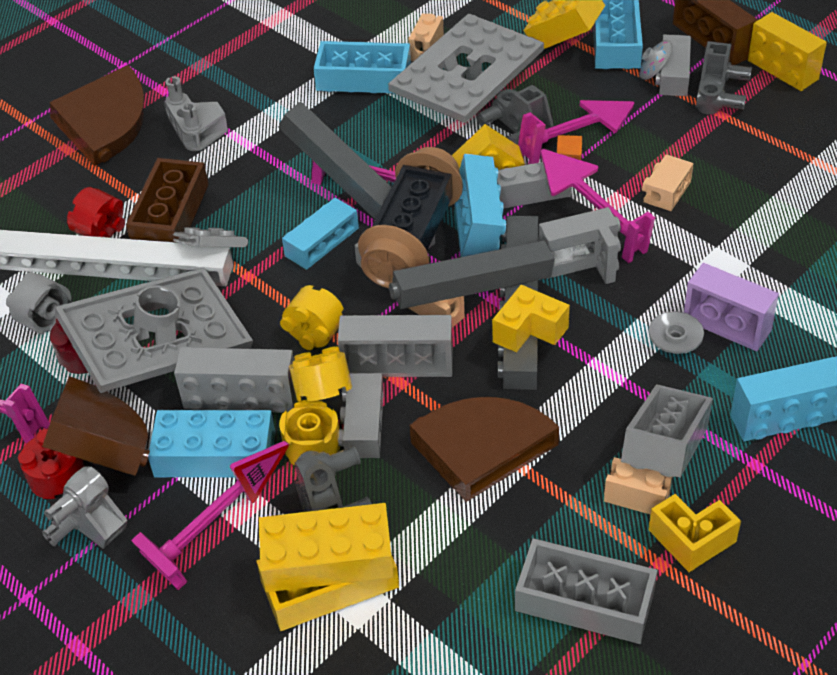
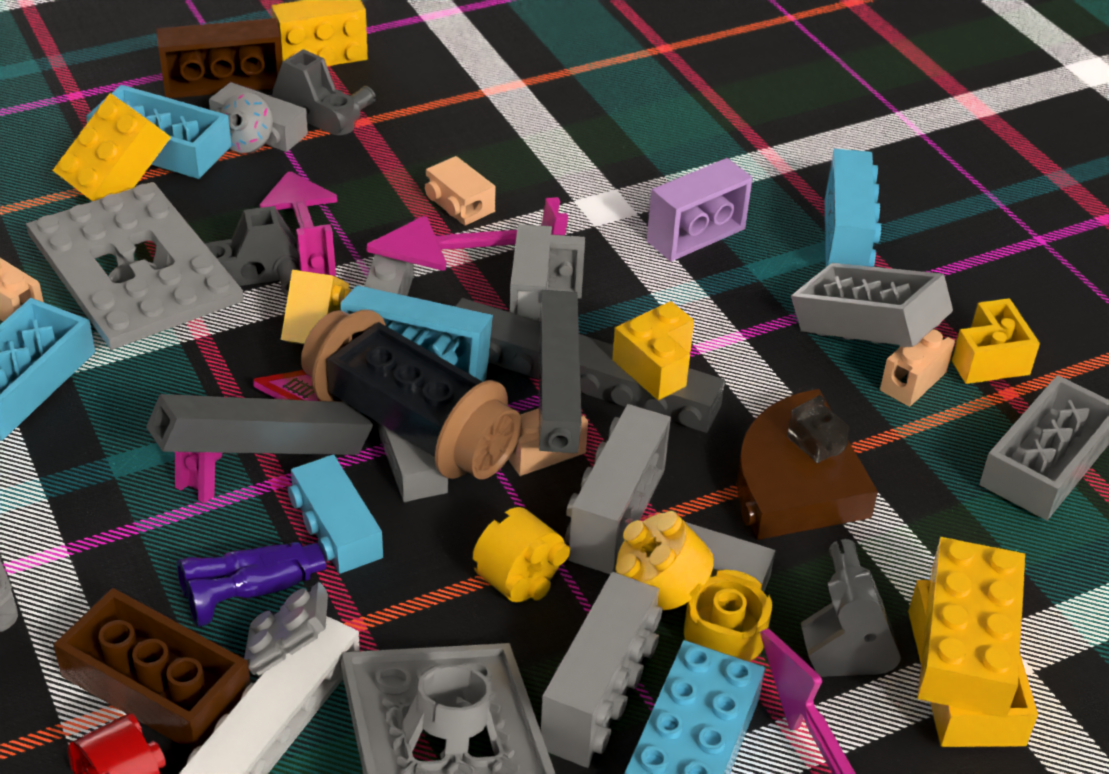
camera: 75 degrees left, 5 degrees down
(257, 217) = (248, 575): none -> dark purple piece
(498, 429) = (817, 430): none -> clear smoke brick
(570, 146) = (350, 245): orange brick -> none
(676, 332) = (703, 265): light grey dish -> none

